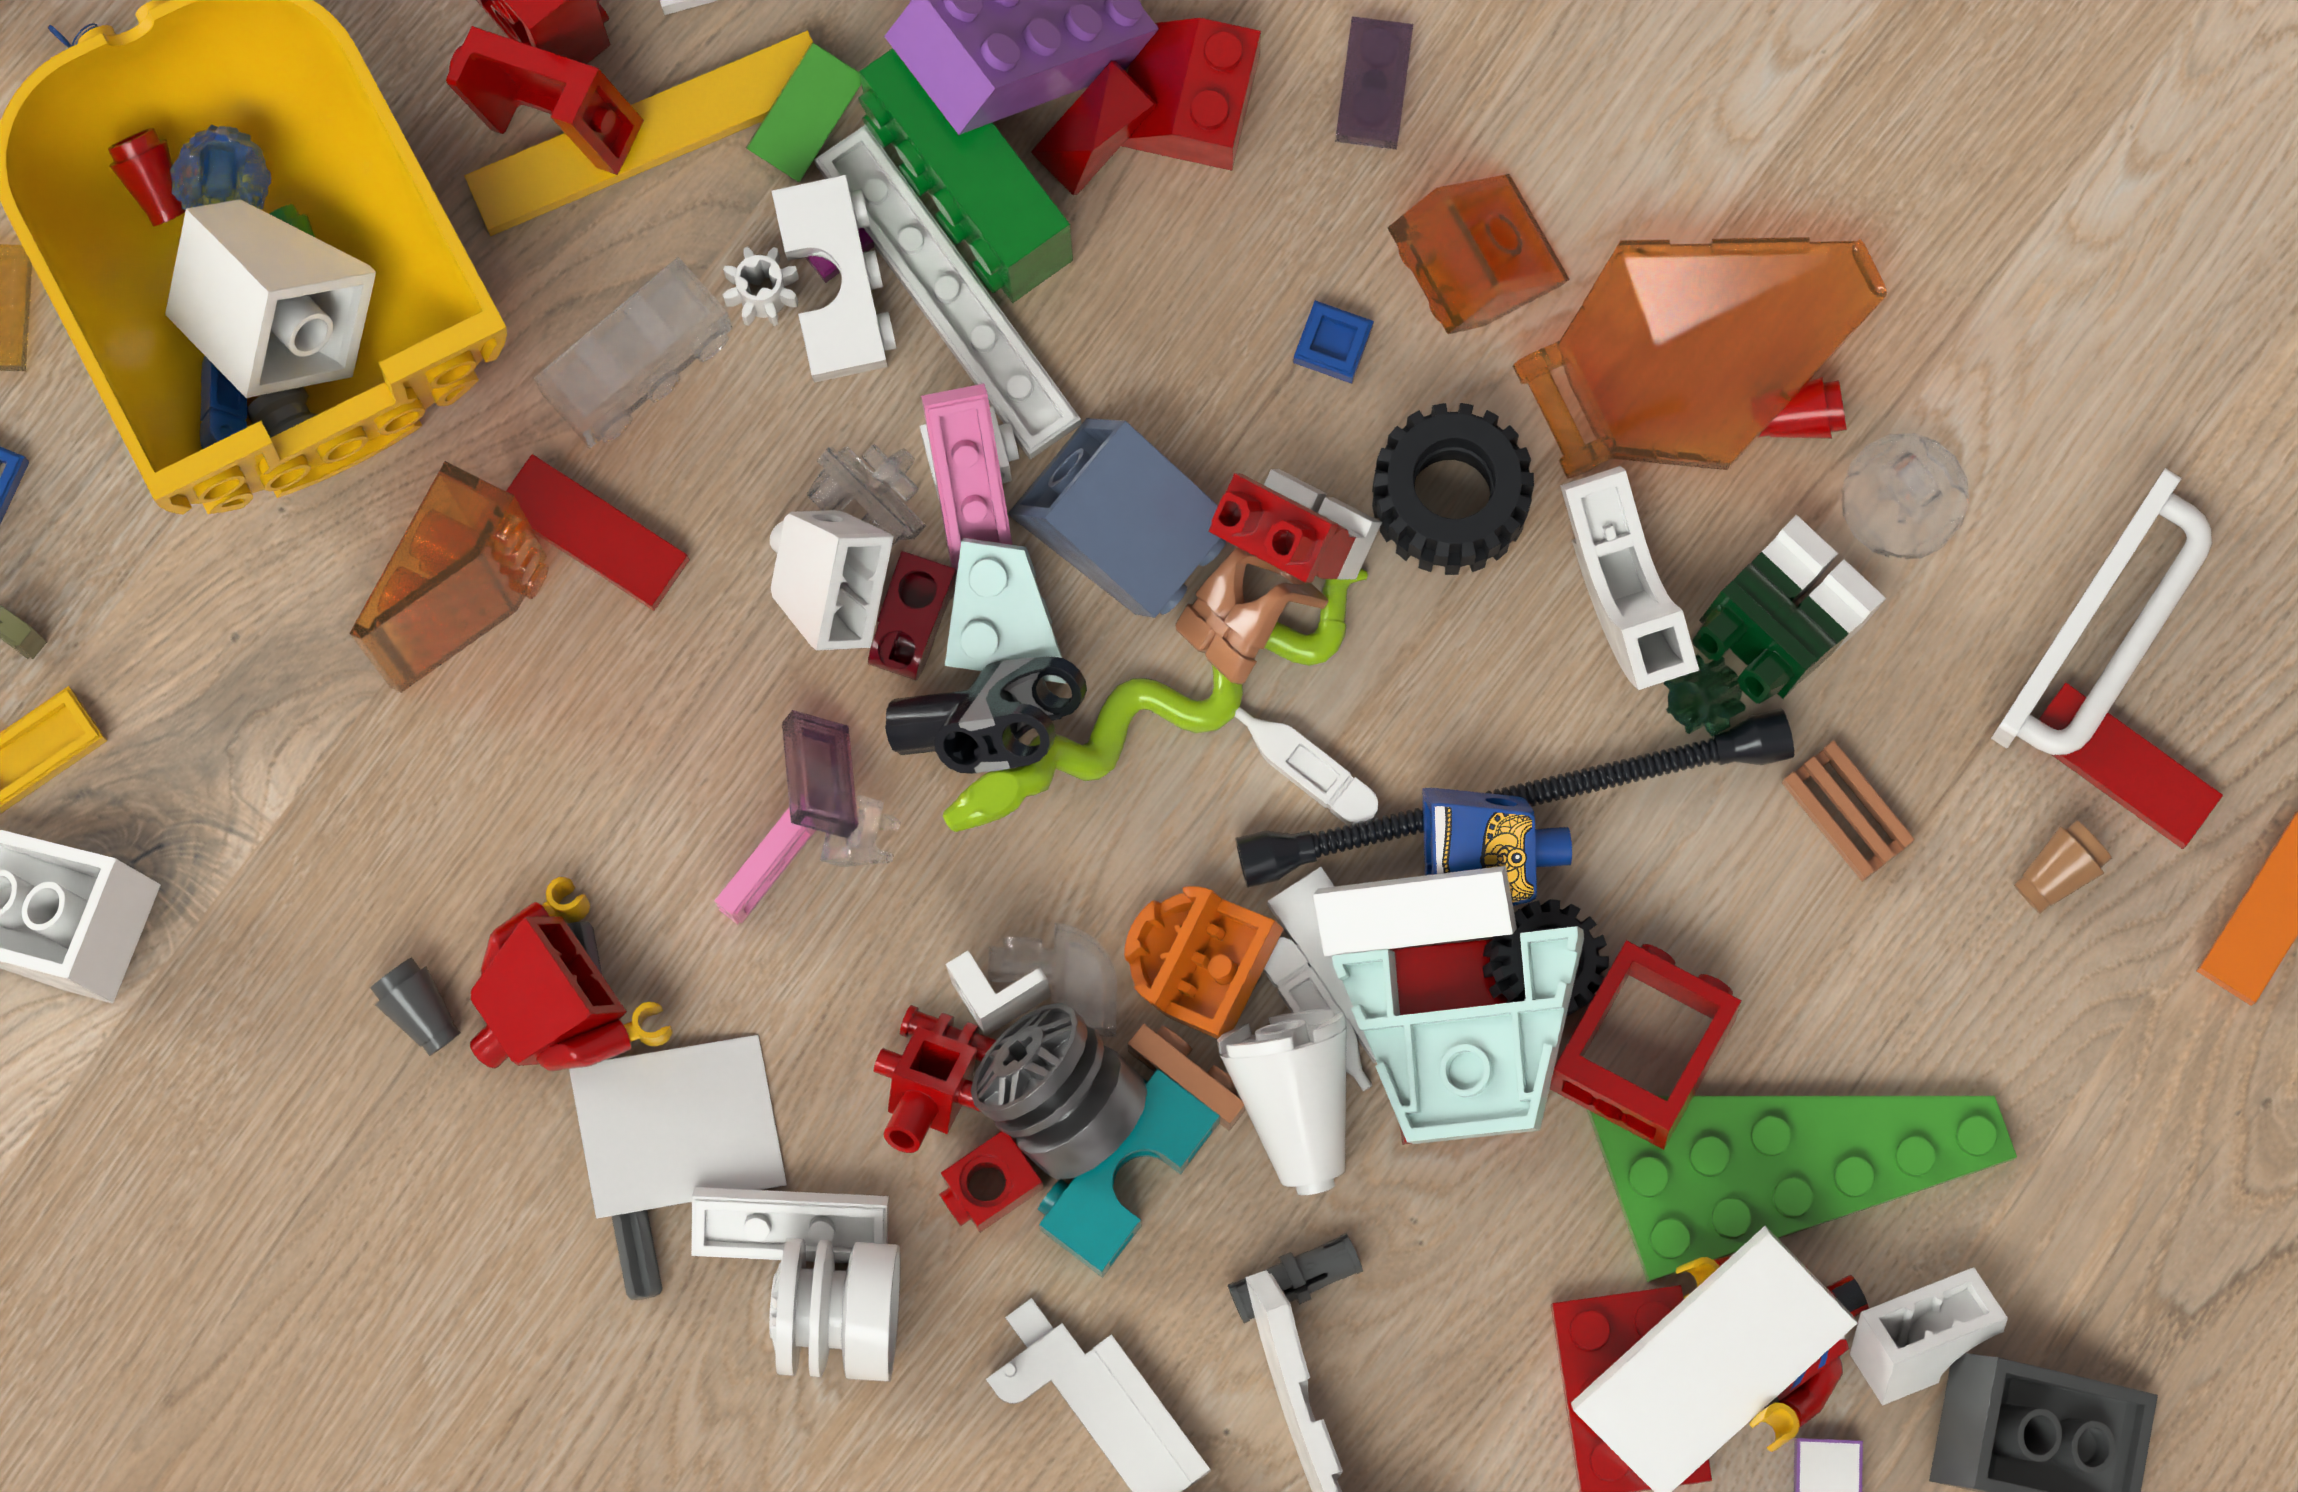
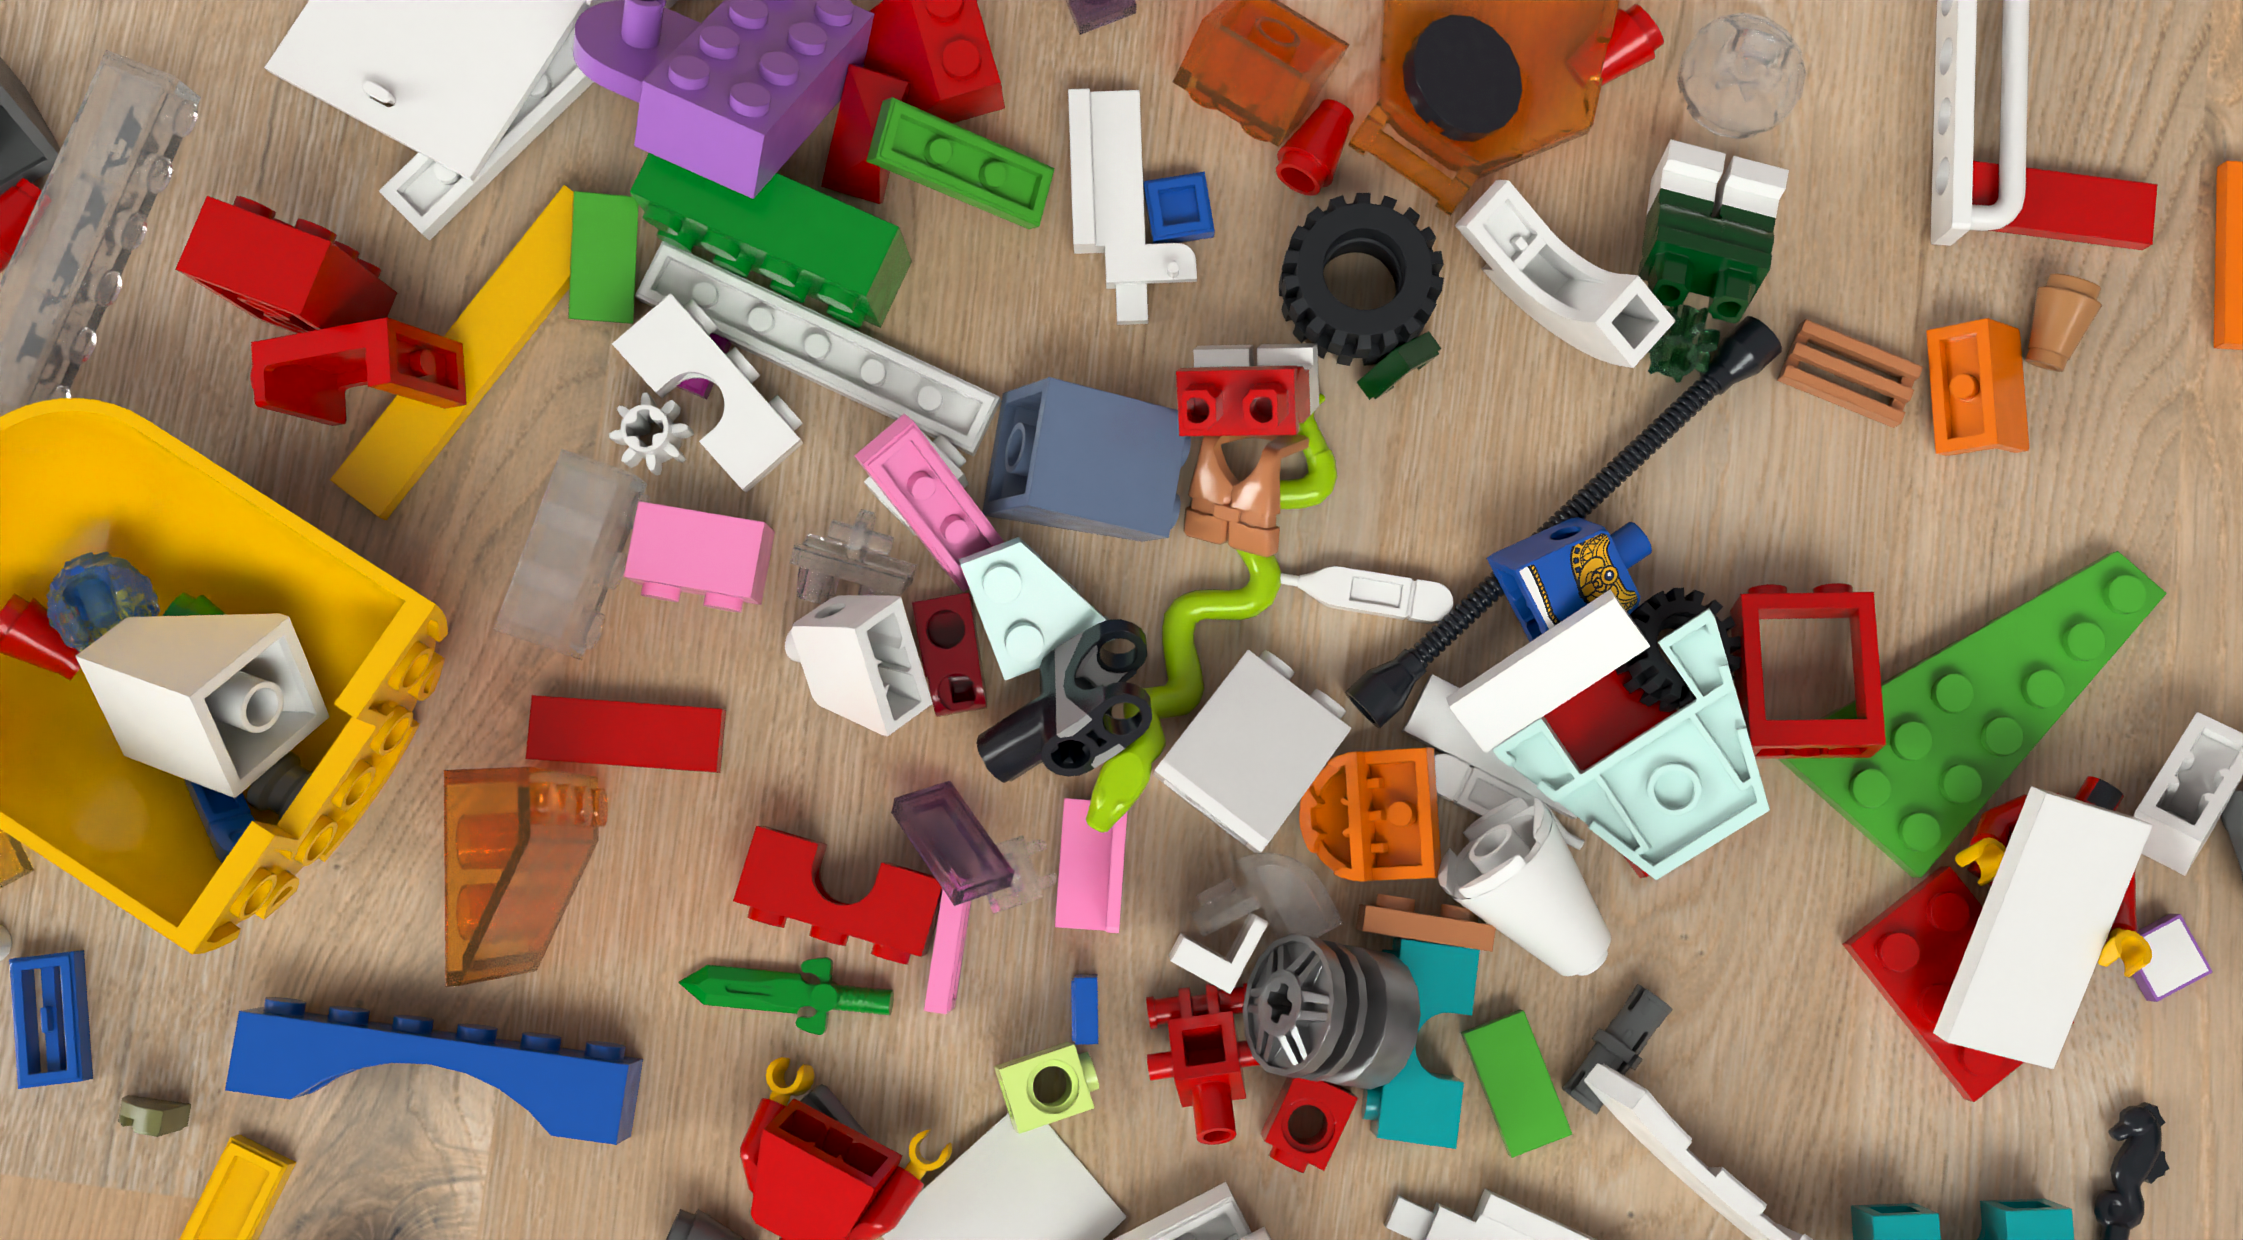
camera: 30 degrees left, 5 degrees up
(173, 652) = (567, 1090): none -> blue arch
(604, 828) = (786, 992): none -> green sword
(658, 730) = (785, 882): none -> red arch
(742, 413) = (700, 555): none -> bright pink brick
(753, 1034) = (1017, 1081): none -> yellowish green brick
(852, 982) = (1085, 1009): none -> blue tile
(927, 869) = (1089, 871): none -> bright pink panel
(1123, 839) = (1254, 749): none -> white slope
(1159, 199) = (960, 163): none -> bright green tile
(1190, 1258) = (1516, 1083): none -> bright green tile
(1278, 300) = (1111, 200): none -> white piece
(1448, 578) = (1399, 363): none -> dark green tile
(1482, 354) = (1314, 150): none -> red cone
(1643, 362) = (1462, 78): none -> black tile
(1956, 886) = (1977, 388): none -> orange panel

